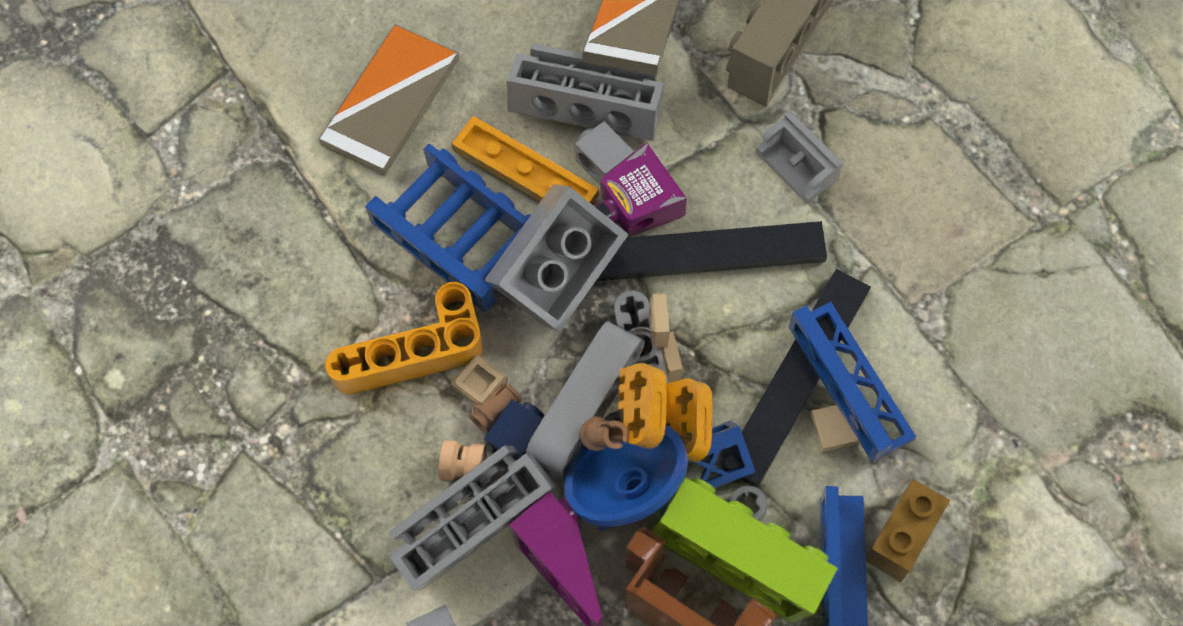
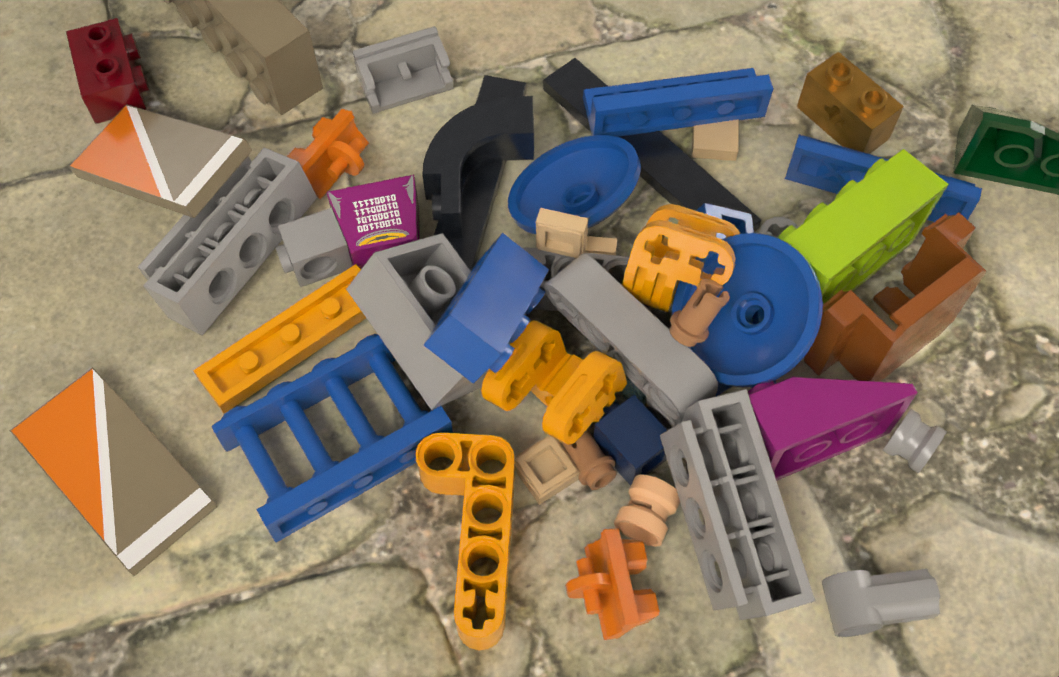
camera: 75 degrees left, 5 degrees down
(416, 447) = (607, 584): none -> orange hips
(553, 360) = (565, 383): none -> light orange piece
(564, 286) = (489, 310): none -> blue brick
(693, 133) = (332, 152): none -> orange hips
(725, 321) = (577, 178): none -> blue dish
(728, 226) = (470, 140): none -> black arch

